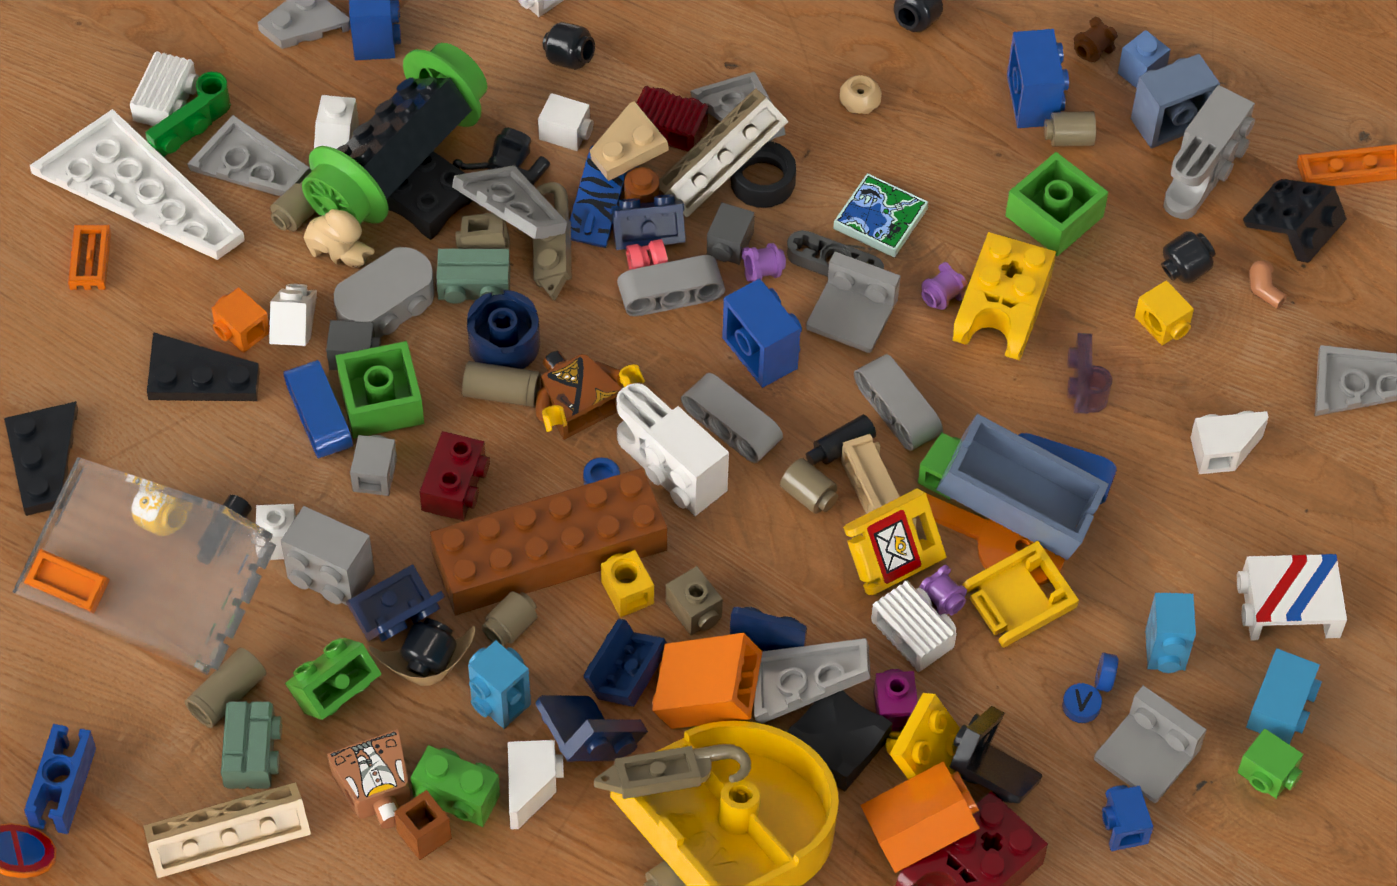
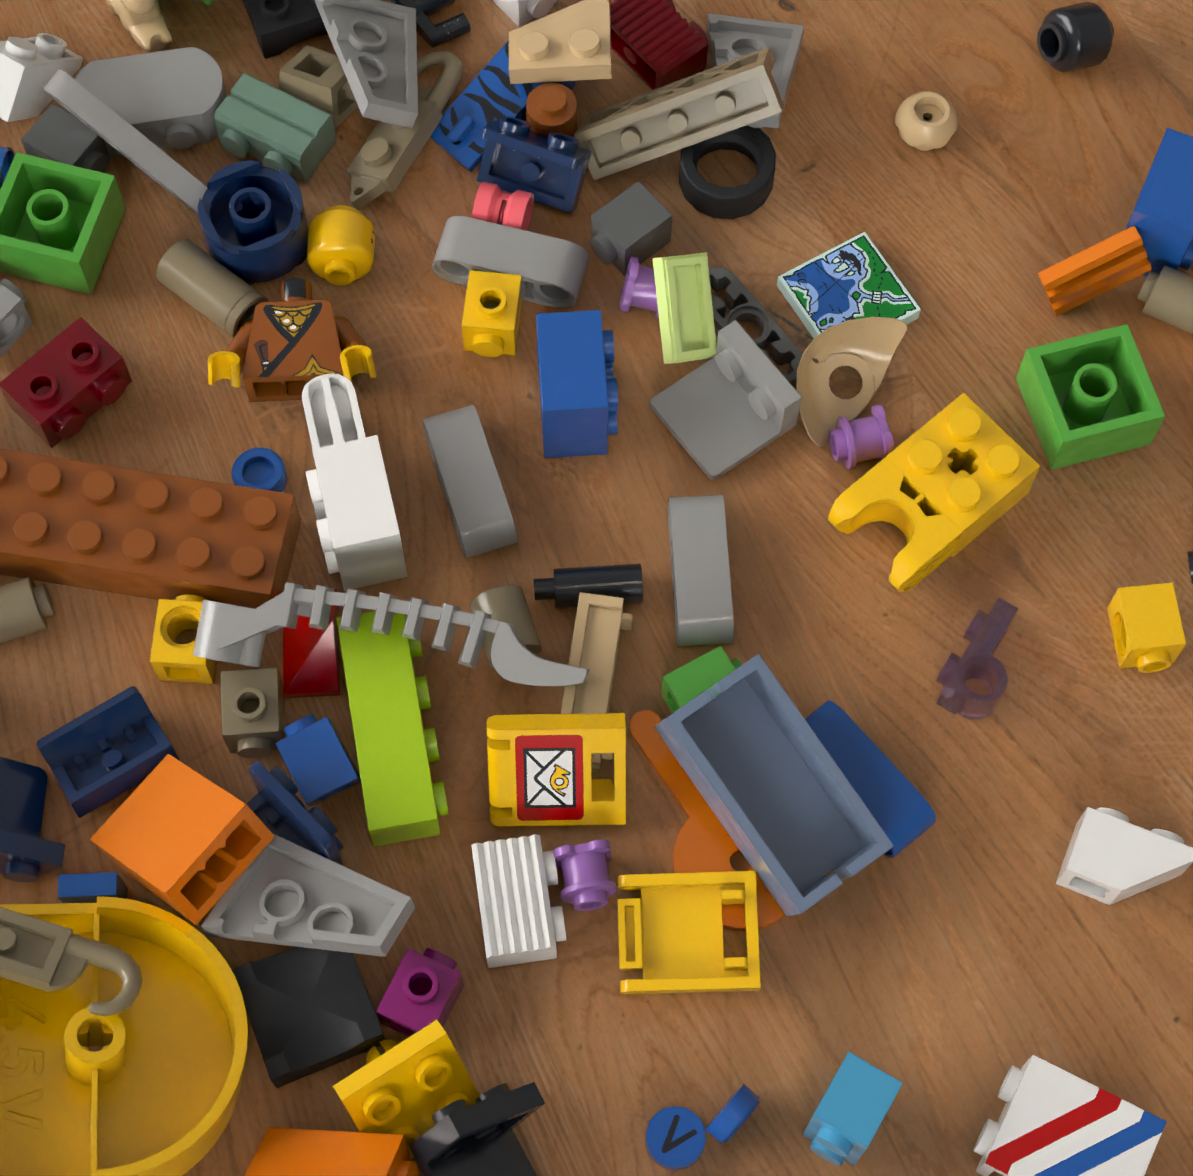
camera: 30 degrees right, 10 degrees up
(401, 319) = (126, 139): none -> light grey beam
(562, 321) = (341, 243): none -> yellow head
(666, 553) = (239, 632): none -> light grey piece
(668, 735) = (87, 886): none -> blue tile
(681, 318) = (492, 313): none -> yellow brick
(699, 545) = (311, 659): none -> red slope
(753, 594) = (317, 759): none -> blue brick
(780, 567) = (390, 733): none -> lime brick
(795, 261) = (685, 307): none -> yellowish green tile
(912, 236) = (856, 343): none -> tan piece
(1015, 133) = (1095, 270): none -> orange tile

